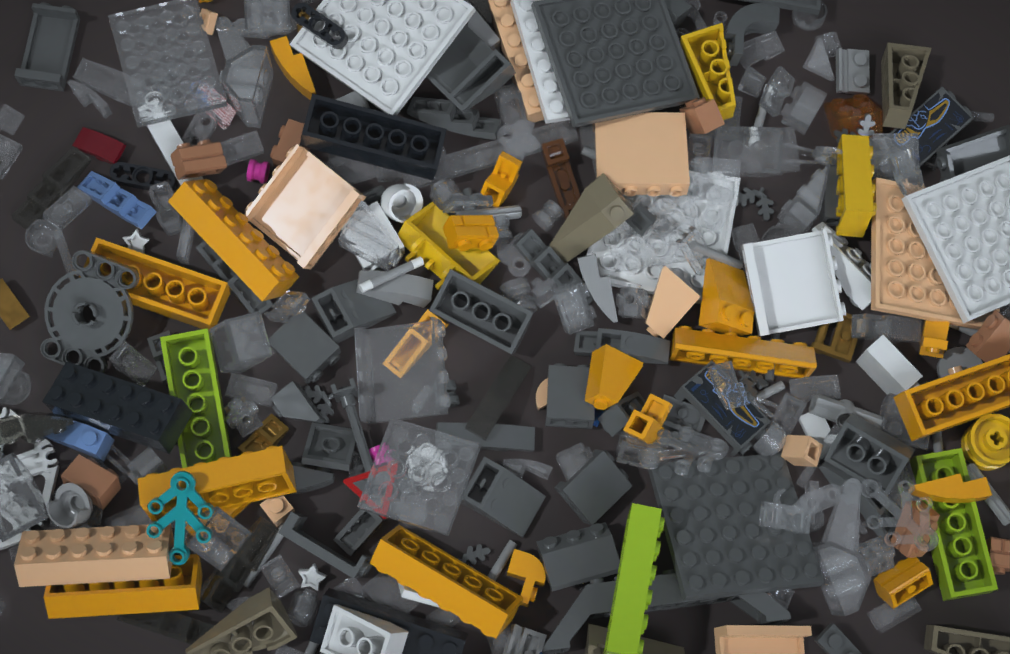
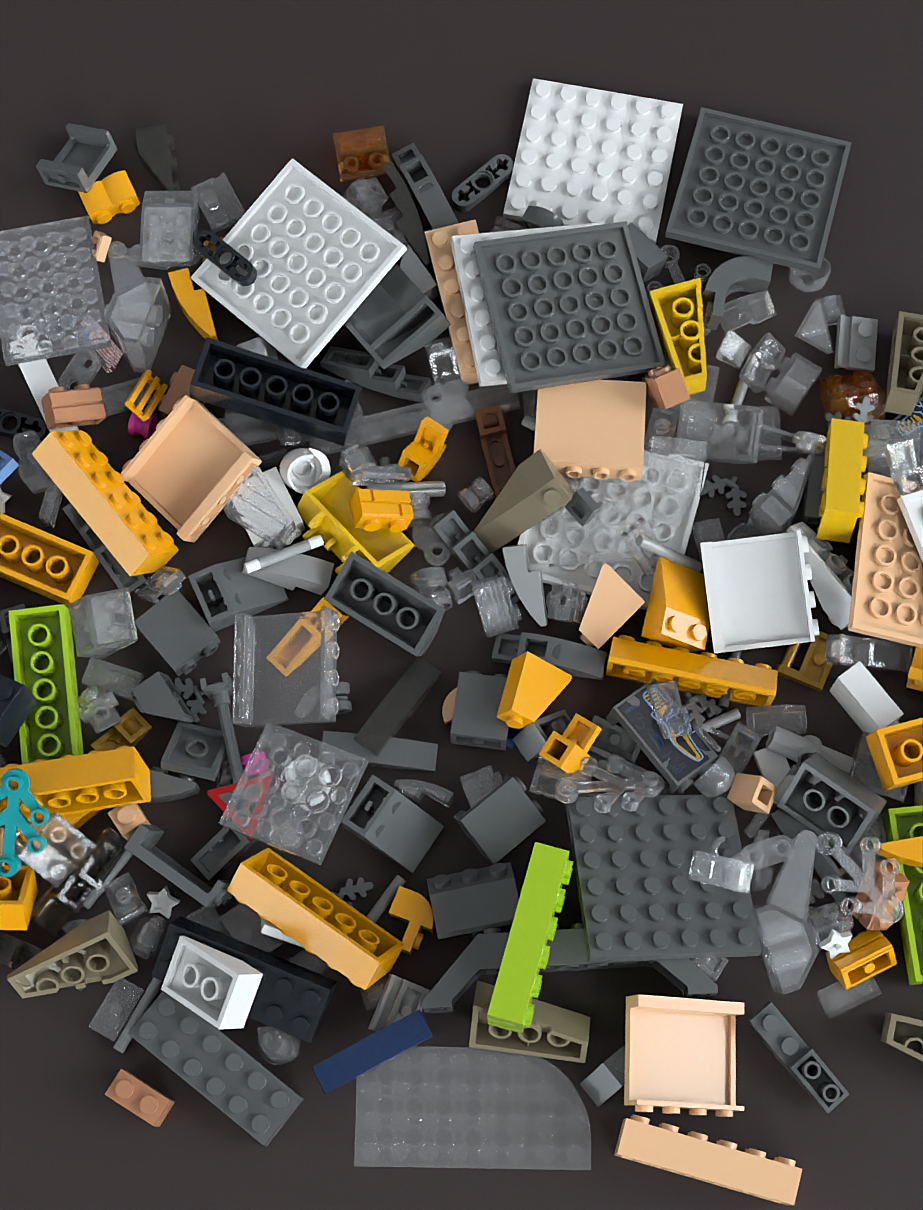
camera: 15 degrees right, 0 degrees up
(268, 148) = (153, 384): none -> light orange tile
(883, 570) = (836, 943): none -> white piece

